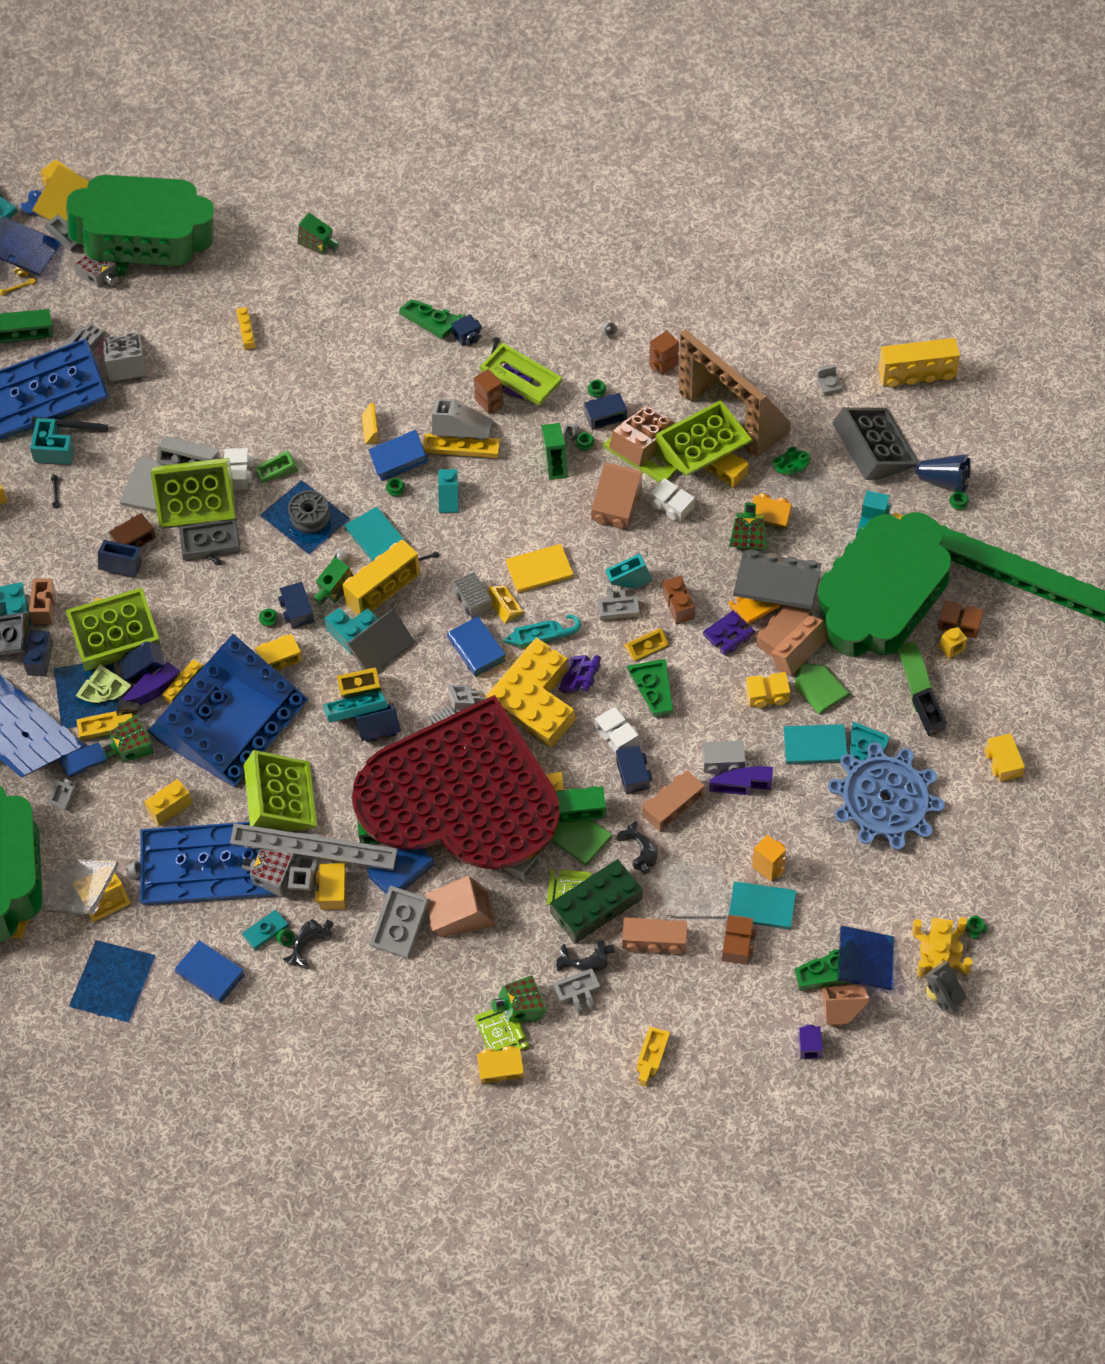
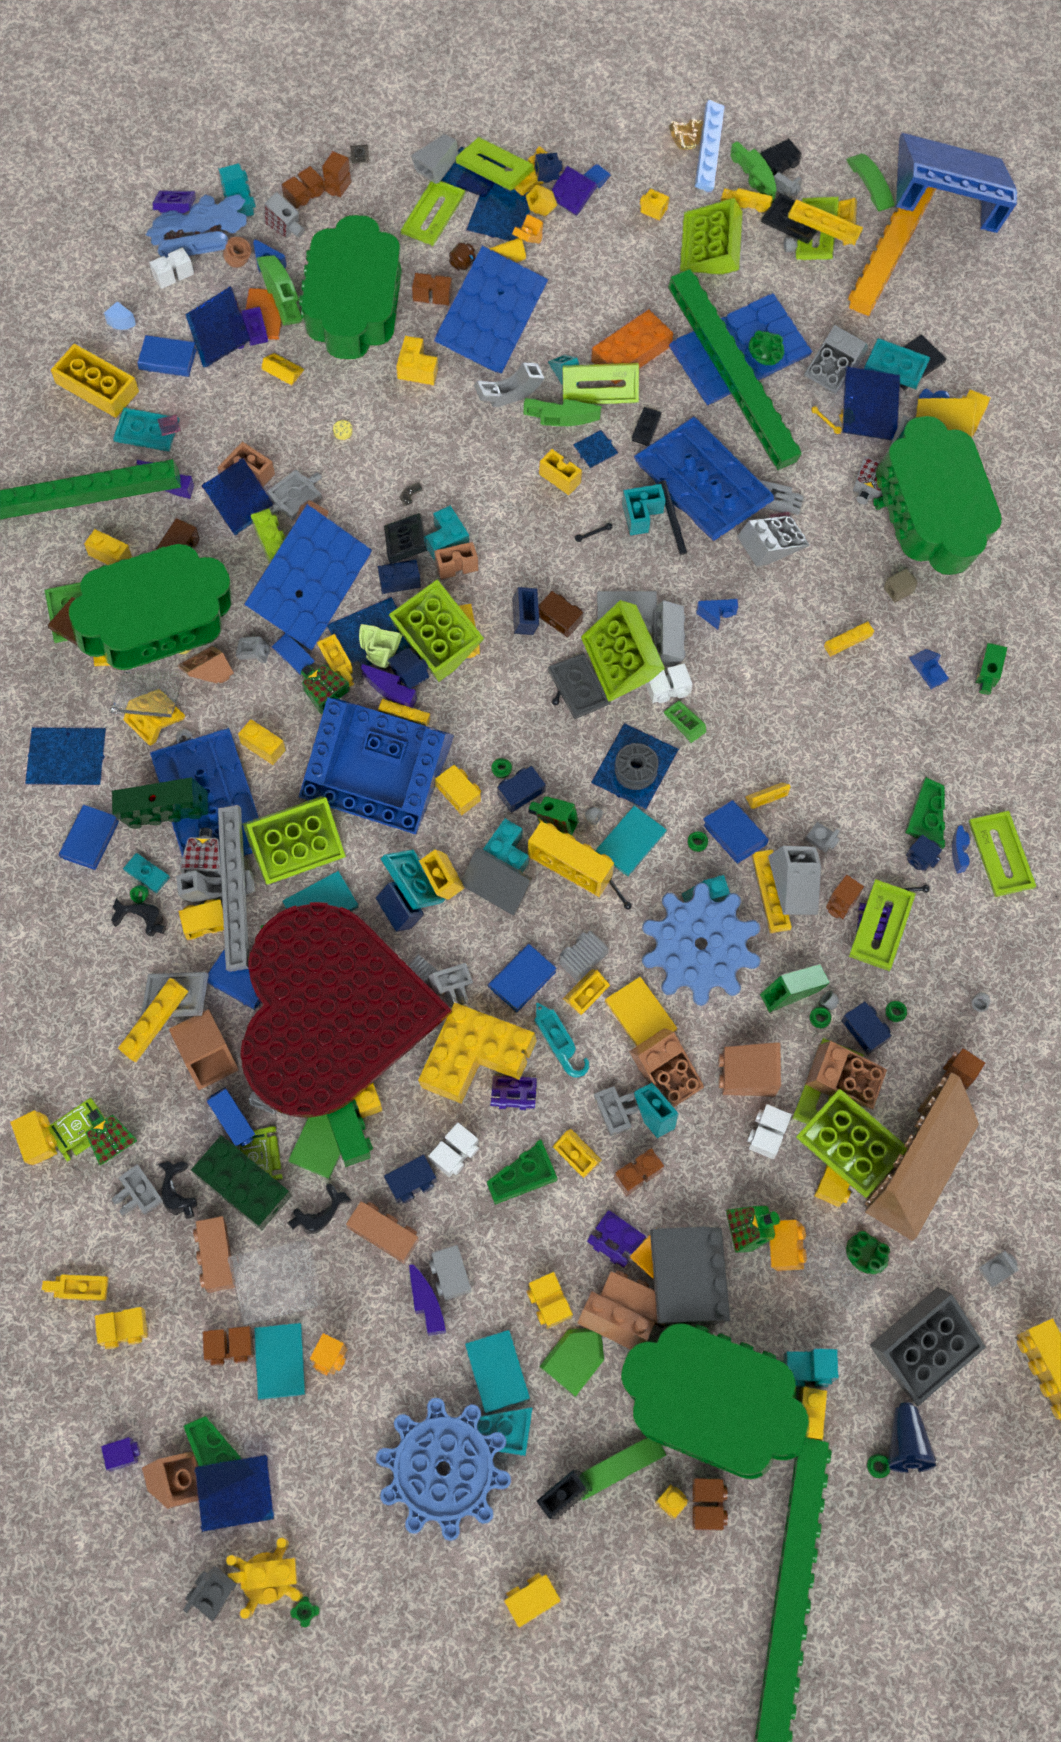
camera: 70 degrees right, 10 degrees up
(65, 833) = (208, 666): none -> nougat slope
(179, 416) = (713, 609): none -> blue slope
(205, 891) = (160, 803): none -> dark green brick
(210, 276) = (900, 585): none -> dark tan brick
(292, 280) = (927, 665): none -> blue slope
(339, 783) = (328, 890): none -> teal tile
(419, 943) = (153, 1019): none -> yellow plate
(425, 397) = (823, 837): none -> light grey bracket
(460, 271) = (1018, 863): none -> lime piece
(464, 303) = (959, 845): none -> blue slope
(490, 523) = (703, 968): none -> medium blue plate
(530, 896) = (231, 1117): none -> blue slope
(589, 557) = (667, 1066): none -> nougat slope
(698, 1022) = (121, 1327): none -> yellow brick

